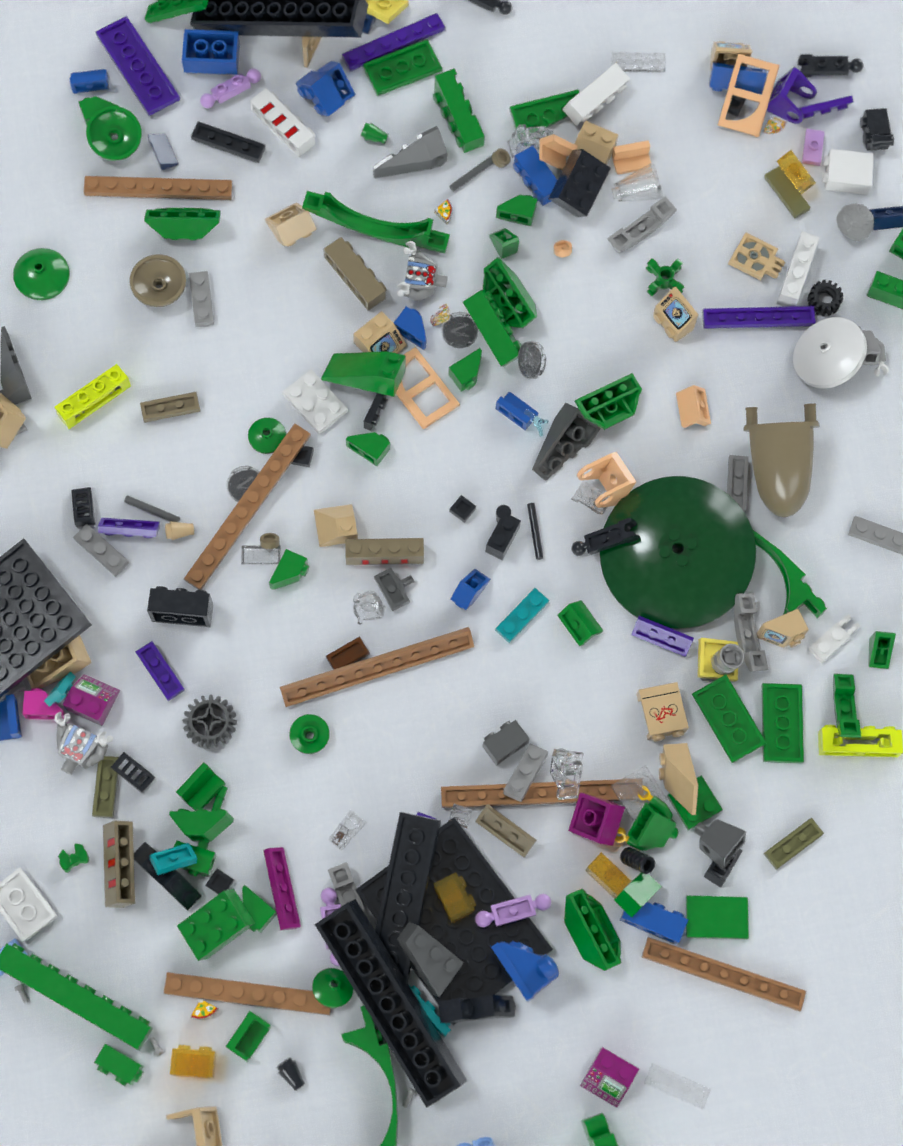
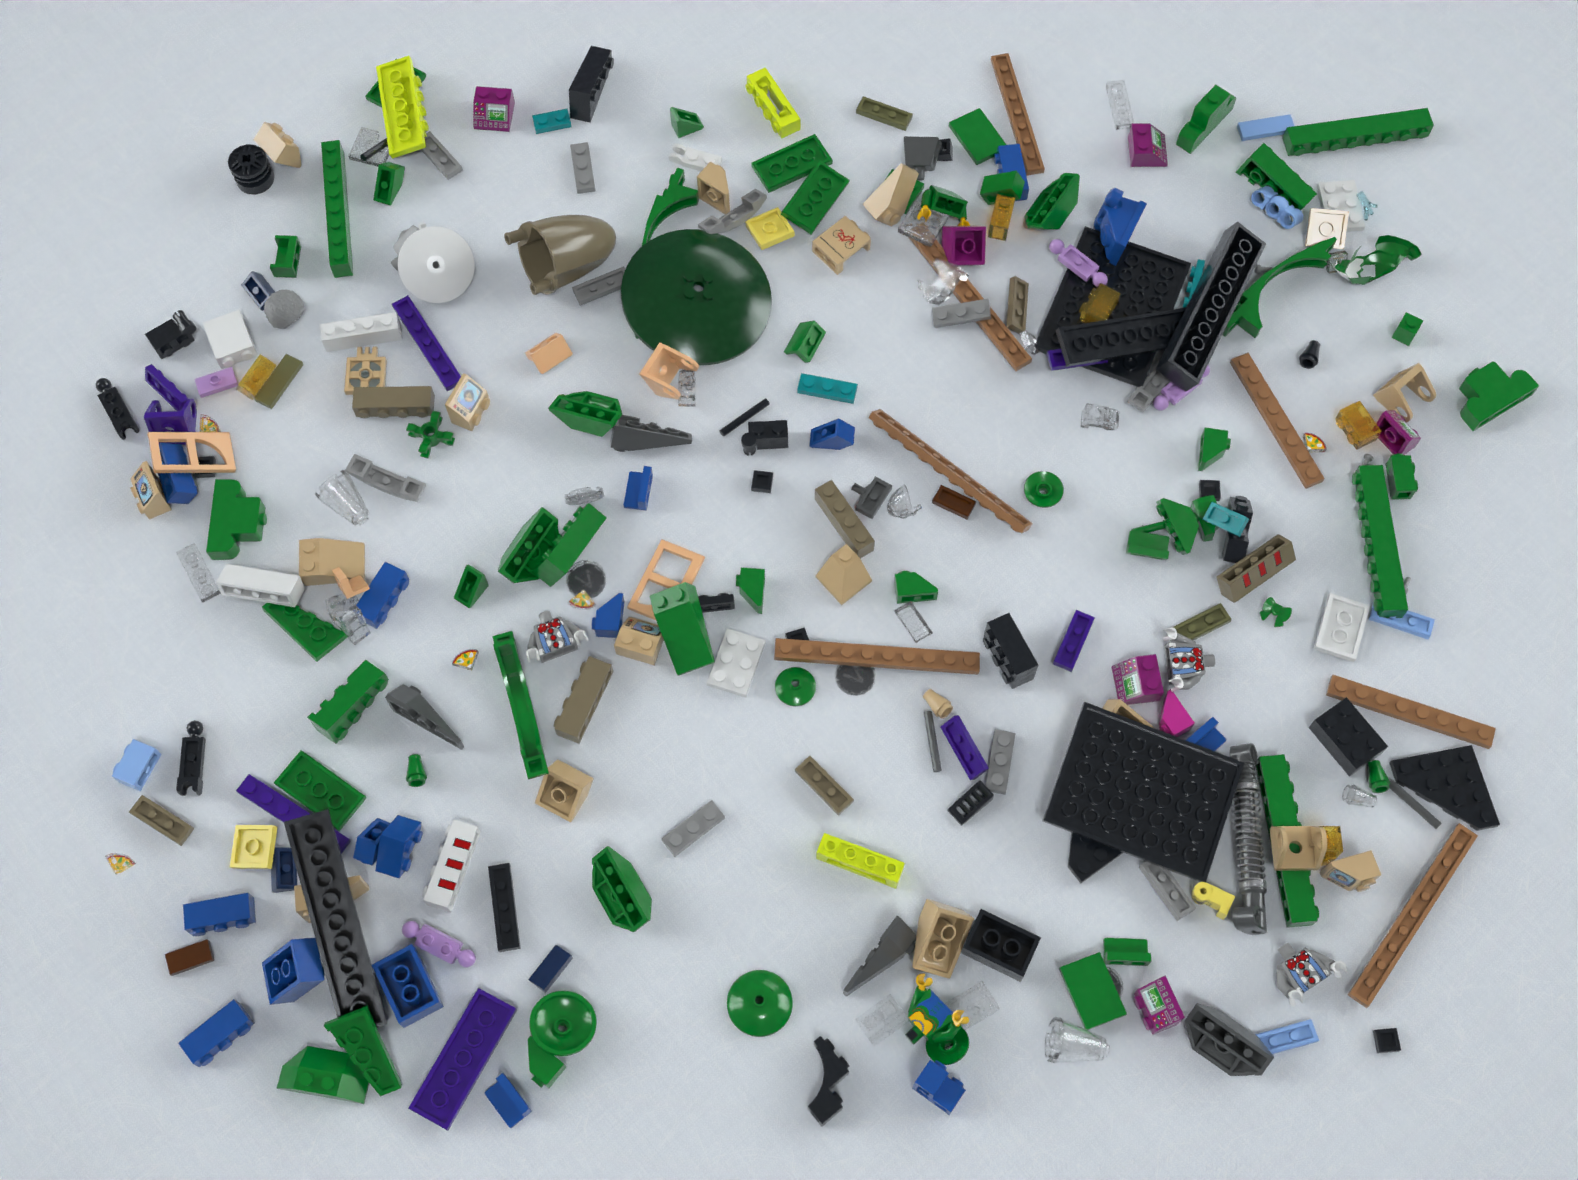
camera: 115 degrees left, 5 degrees down
(60, 689) = (1153, 704): teal plate -> none
(141, 788) = (1178, 594): black slope -> none
(156, 271) = (700, 859): dark tan dish -> none
(158, 187) = (596, 948): medium nougat plate -> none
(160, 1093) = (1396, 433): none -> magenta slope
(202, 721) = (1084, 561): dark grey gear -> none
(216, 924) = (1248, 463): green brick -> none
(248, 1036) = (1308, 401): green panel -> none
(269, 541) = (896, 620): dark tan tile -> none
(281, 888) = (1181, 439): magenta plate -> none
(329, 995) = (1228, 367): green dish -> none
(431, 959) = (1160, 292): dark grey wedge -> none
(465, 371) = (625, 547): green slope -> none
(472, 173) = (409, 657): dark grey bar -> none
(476, 1008) = (1164, 240): black arch -> none
(501, 158) = (378, 639): dark tan tile -> none
(505, 742) = (946, 341): dark grey brick -> none
(518, 210) = (427, 591): green slope -> none
(536, 420) = (639, 465): clear light blue bar -> none
(562, 248) = (448, 534): light nougat tile -> none
(579, 183) = (374, 544): black brick -> none
(606, 538) = (721, 350): black plate -> none
(631, 157) = (313, 524): light nougat panel -> none
(637, 860) = (976, 200): black piece -> none
(662, 636) = (777, 275): plate -> none
(671, 103) = (233, 520): none -> green brick
(713, 265) = (393, 401): none -> dark tan brick
(727, 659) = (769, 213): light grey wheel -> none
(823, 287) = (373, 292): black tyre -> none
(845, 706) = (754, 122): green slope -> none

